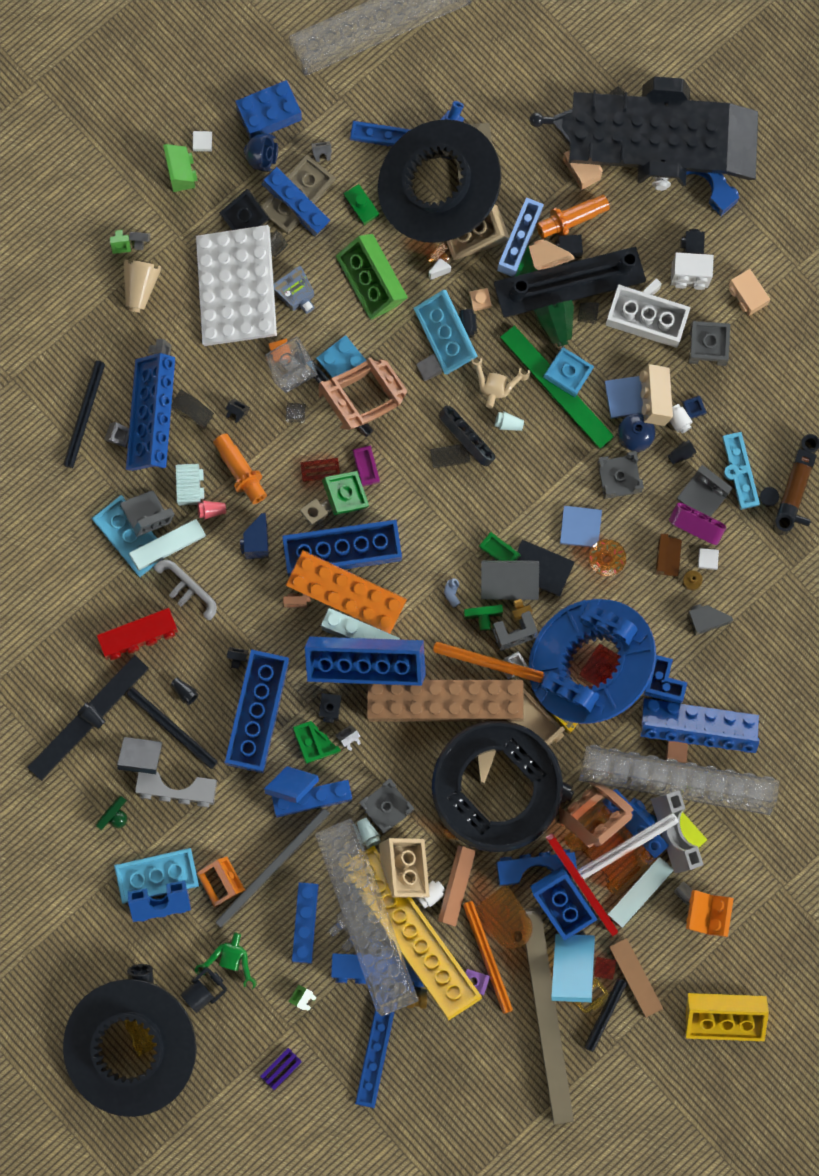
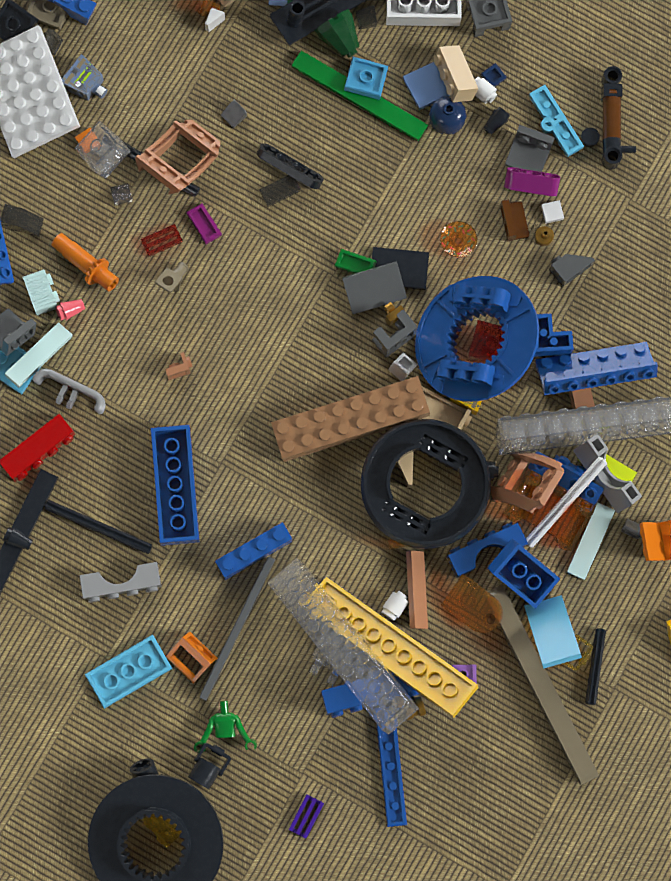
camera: 20 degrees left, 0 degrees up
(116, 817) = (69, 627): dark green tile -> none
(139, 755) = (76, 562): tile -> none
(144, 907) = (127, 705): blue arch -> none
(184, 691) = (101, 489): black cone -> none
(237, 408) = (64, 206): black tile -> none
(237, 655) = (139, 438): black tile -> none
(256, 539) = (121, 324): dark blue slope -> none
(291, 784) = (230, 543): blue tile -> none
(301, 997) = (303, 742): tile -> none
(305, 923) = (285, 670): blue arch -> none
(313, 743) = (237, 498): green wing -> none
(330, 708) = (243, 460): black brick -> none
(340, 357) = (147, 129): dark azure plate -> none
(345, 492) = (192, 254): plate -> none
(346, 592) = (223, 346): orange plate -> none
(347, 546) = (206, 306): blue brick -> none
(347, 736) = (268, 481): flat silver tile -> none
(348, 627) = (249, 381): light aqua brick -> none
(365, 661) = (263, 405): blue brick -> none
(368, 833) = (317, 567): light aqua cone -> none
(371, 276) = (151, 44): bright green slope -> none
(386, 806) = (326, 536): dark grey panel -> none
(405, 867) = (363, 587): tan slope -> none
(445, 332) = (238, 75): medium azure tile -> none
(450, 591) = (321, 316): sand blue arm -> none
(469, 321) = (256, 61): black brick -> none
(480, 299) = (261, 36): light nougat plate -> none
(483, 615) = (360, 328): green tile -> none
(487, 956) = (467, 647): orange axle -> none
(488, 662) = (379, 370): orange axle -> none
(496, 383) = (301, 109): tan piece -> none
(506, 421) = (325, 141): light aqua cone -> none
(580, 526) = (423, 218): medium blue tile -> none
(582, 884) = (531, 547): red tile -> none
(604, 968) = (581, 622): clear red plate -> none
(620, 475) = (445, 159): dark grey panel -> none
(636, 978) = (612, 622): medium nougat tile -> none

